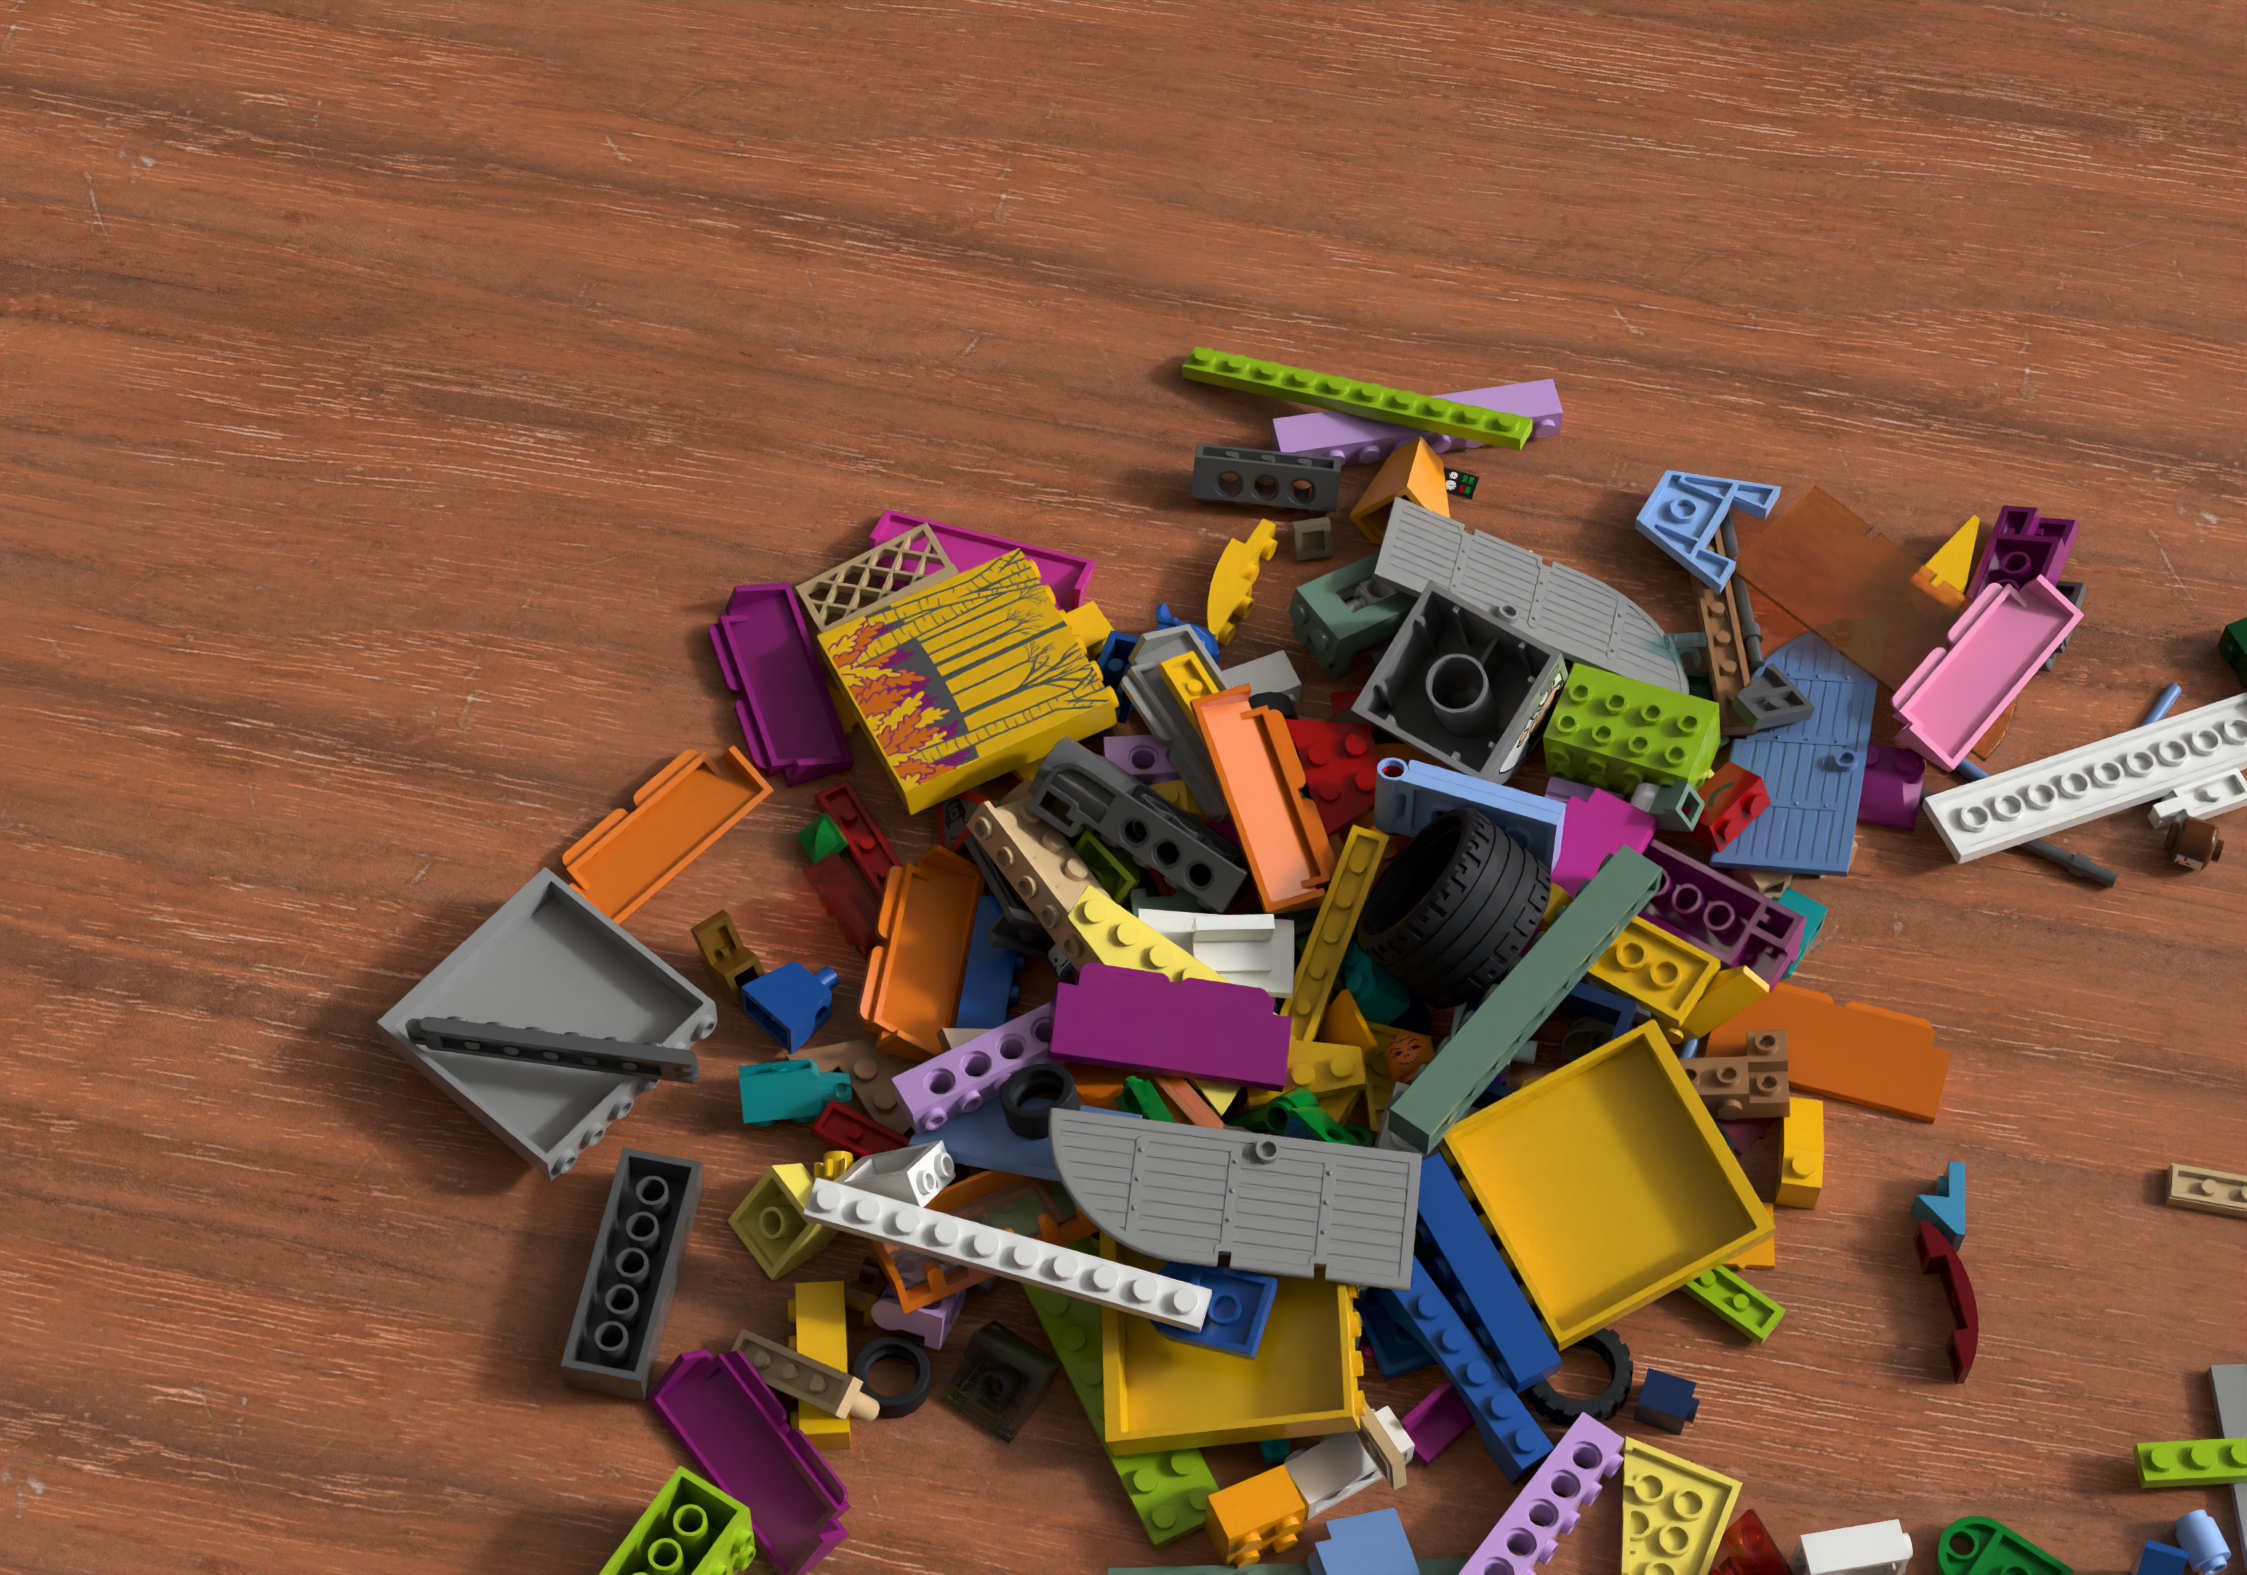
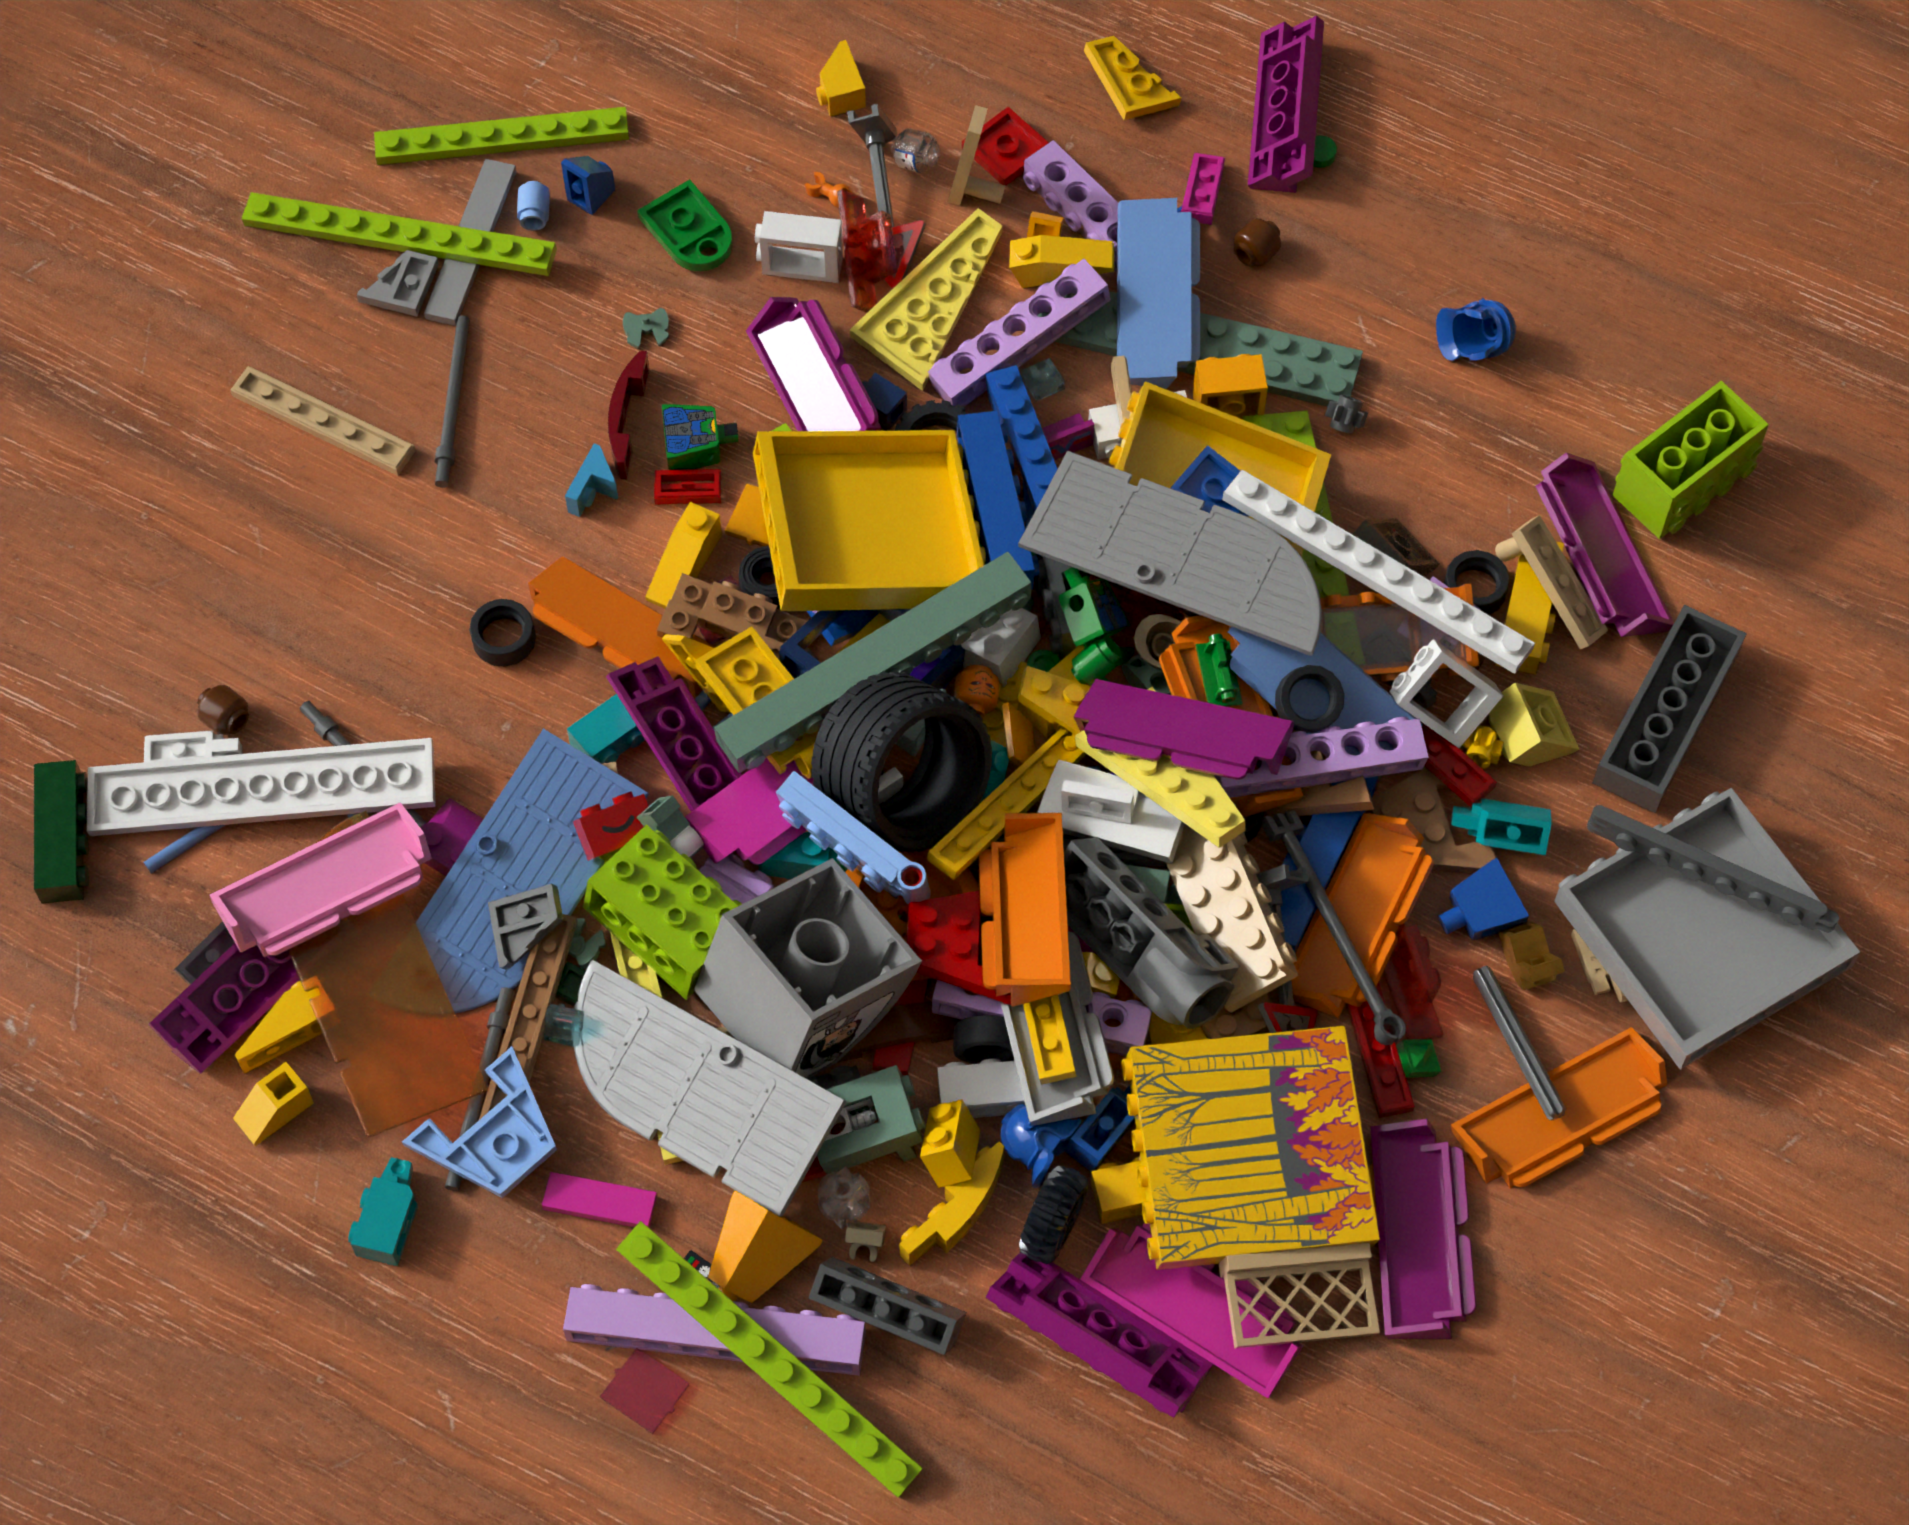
camera: 160 degrees left, 5 degrees up
(723, 879) = (1519, 1043): none -> dark grey axle
(1023, 999) = (1286, 827): none -> dark grey hinge
(1062, 513) = (1101, 1333): none -> magenta slope
(1105, 1545) = (1346, 414): none -> dark grey gear
(1138, 581) = (1053, 1214): none -> black gear
(1261, 616) = (950, 1143): none -> yellow brick
(1342, 550) = (843, 1207): none -> clear brick
(1457, 372) = (644, 1390): none -> clear pink piece
(1487, 1500) = (1043, 379): none -> clear light blue tile
(1575, 510) = (598, 1200): none -> dark pink tile
(1750, 1395) = (810, 367): none -> slope
(1763, 438) = (385, 1215): none -> teal hinge
(1844, 1257) = (687, 491): none -> red tile
(1861, 1294) = (694, 436): none -> torso
(1917, 502) = (272, 1104): none -> yellow slope
(1966, 989) = (498, 610): none -> black tyre
(1977, 1439) = (656, 322): none -> sand green piece
(2128, 1199) = (445, 452): none -> dark grey bar

